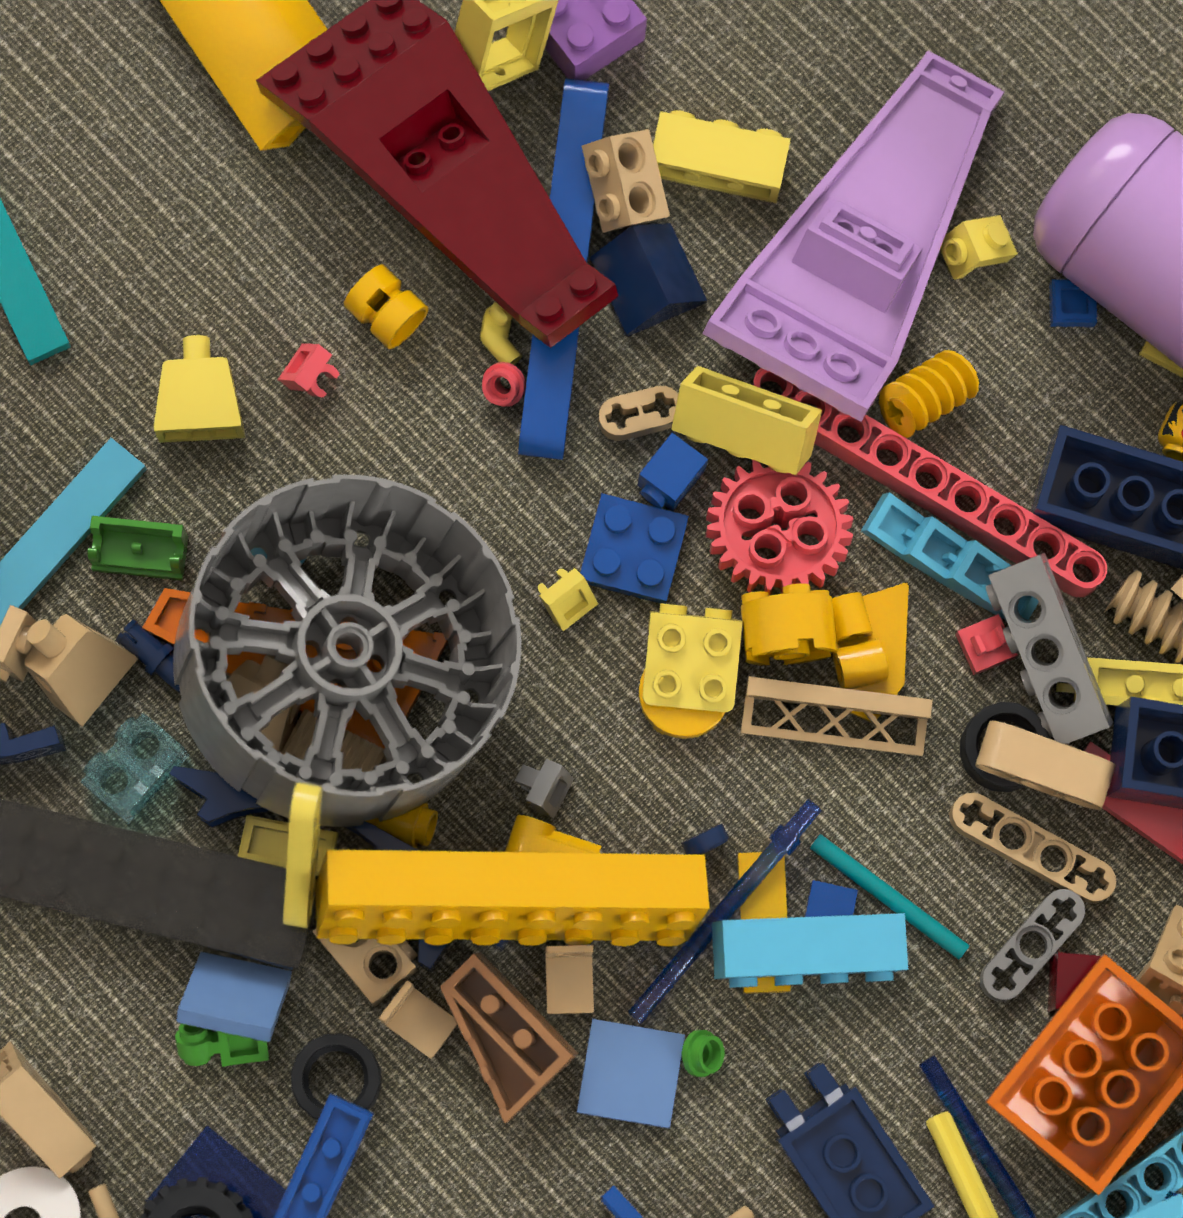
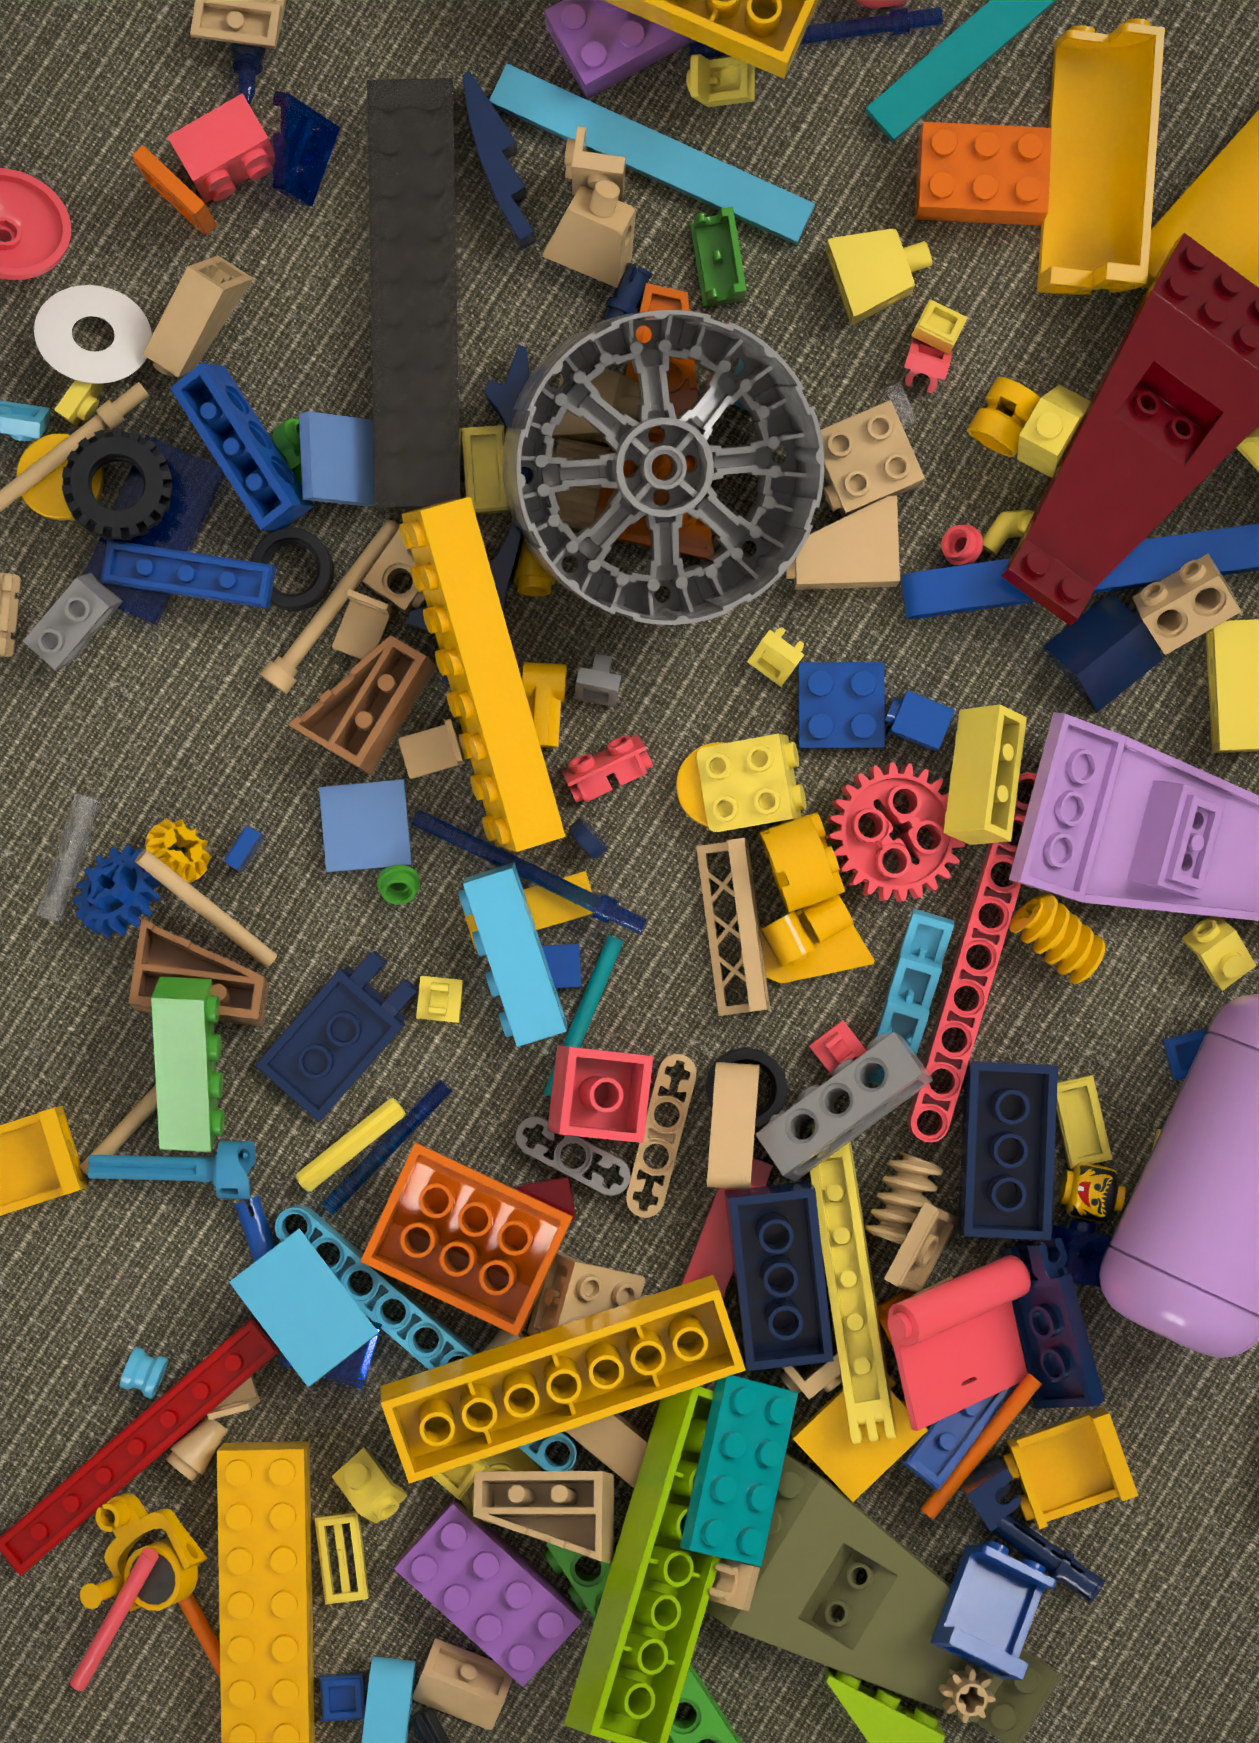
camera: 85 degrees right, 10 degrees up
(131, 264) = (983, 173): none -> orange brick
(143, 775) = (512, 323): clear light blue brick -> none
(153, 145) = (1101, 159): none -> yellow cylinder
(191, 1096) = (241, 446): none -> blue brick
(274, 348) = (939, 326): none -> light yellow tile
(302, 854) = (462, 477): light yellow beam -> none
(346, 409) = (901, 404): none -> clear tile
(392, 444) = (868, 460): none -> tan brick
(416, 261) = (1051, 429): none -> light yellow slope
(441, 1118) = (283, 670): none -> tan piece
(481, 485) = (852, 551): none -> tan slope
(629, 782) = (619, 758): none -> coral hinge
(637, 403) = (978, 669): tan beam -> none
(834, 1042) = (439, 999): none -> light yellow tile
(978, 895) = (600, 1094): none -> coral brick
(1119, 421) = (1081, 1122): none -> light yellow tile

